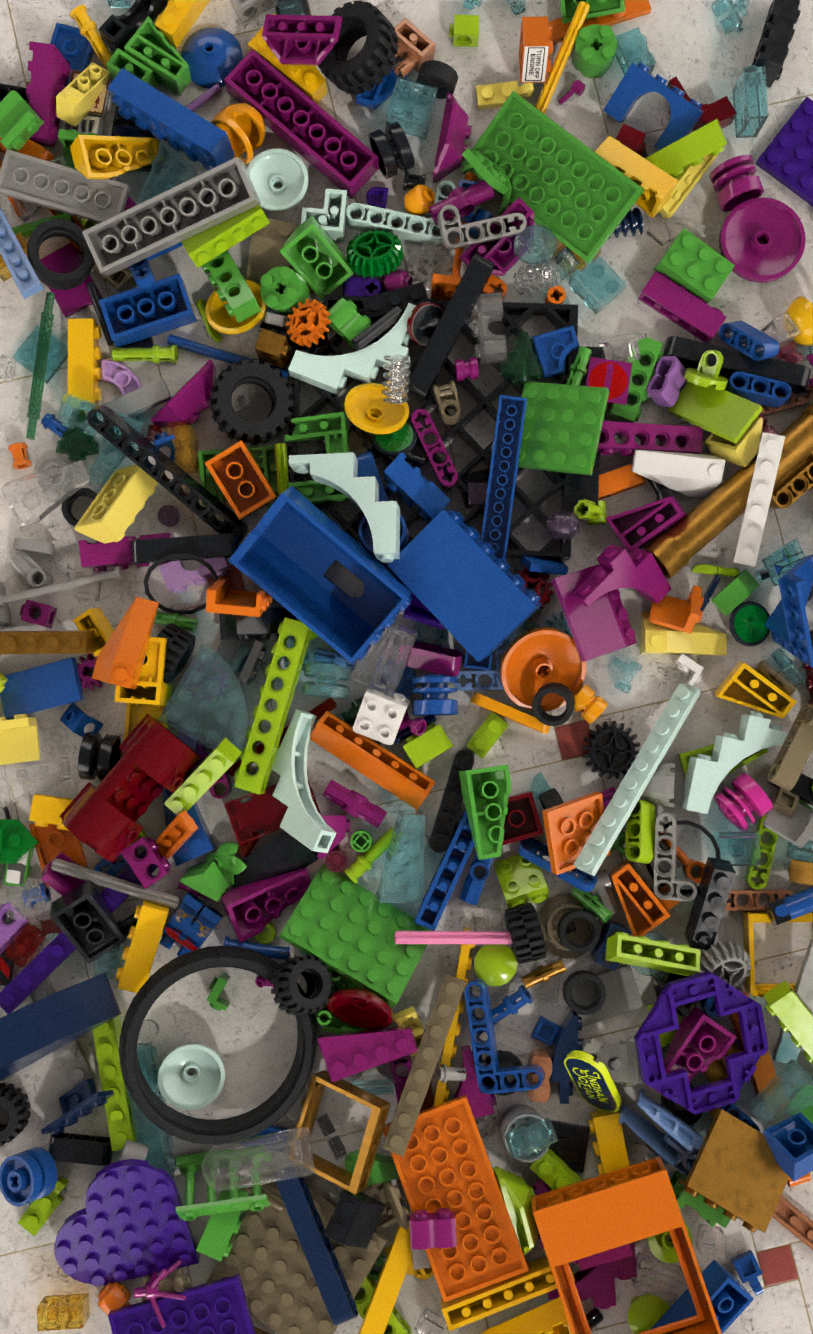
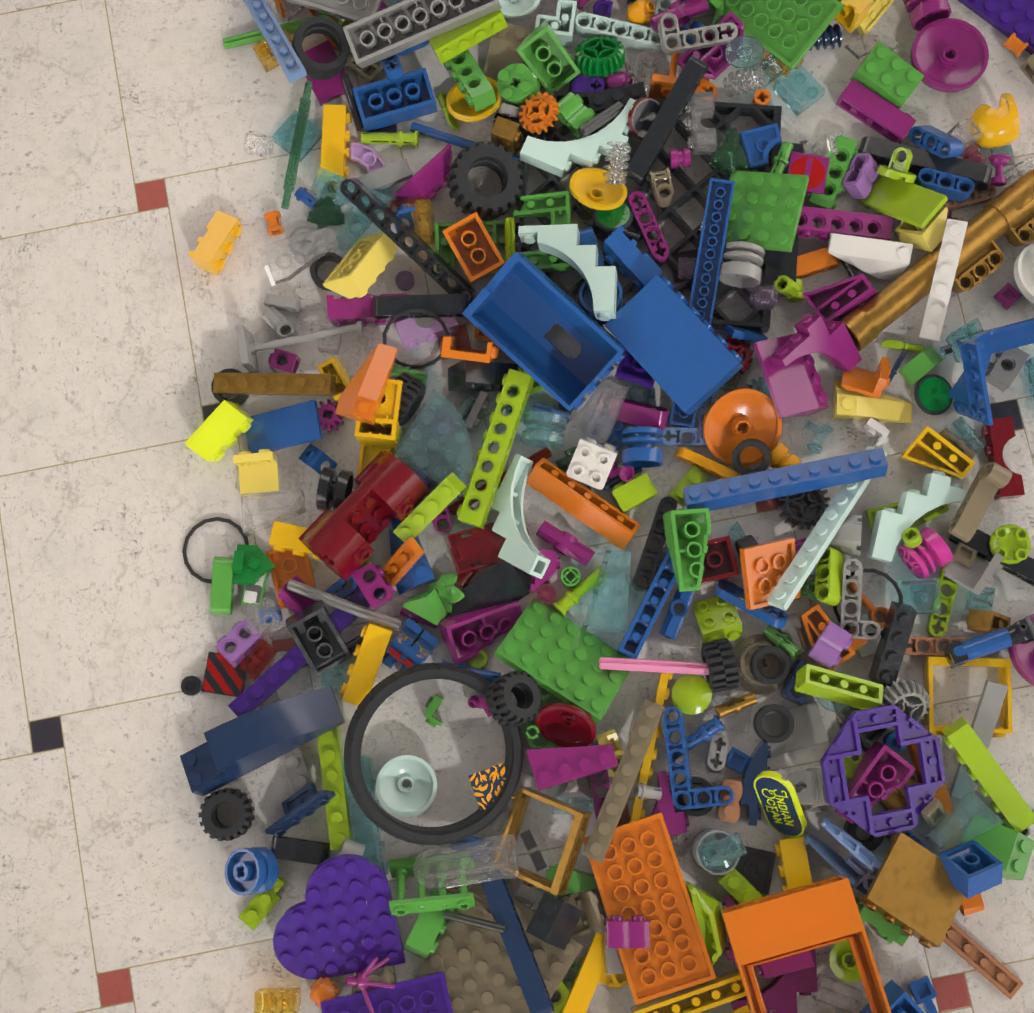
camera: 10 degrees right, 5 degrees down
(269, 1223) = (478, 922): none -> pearl dark grey bar
(278, 1075) = (488, 784): none -> sticker
(529, 1026) = (721, 754): none -> light grey beam
(538, 488) = (742, 264): none -> light grey wheel
(591, 730) = (786, 480): none -> blue brick
(642, 909) = (830, 644): none -> medium lavender brick
(724, 784) = (912, 533): none -> lime bush
(756, 1084) = (933, 813): none -> dark tan tile

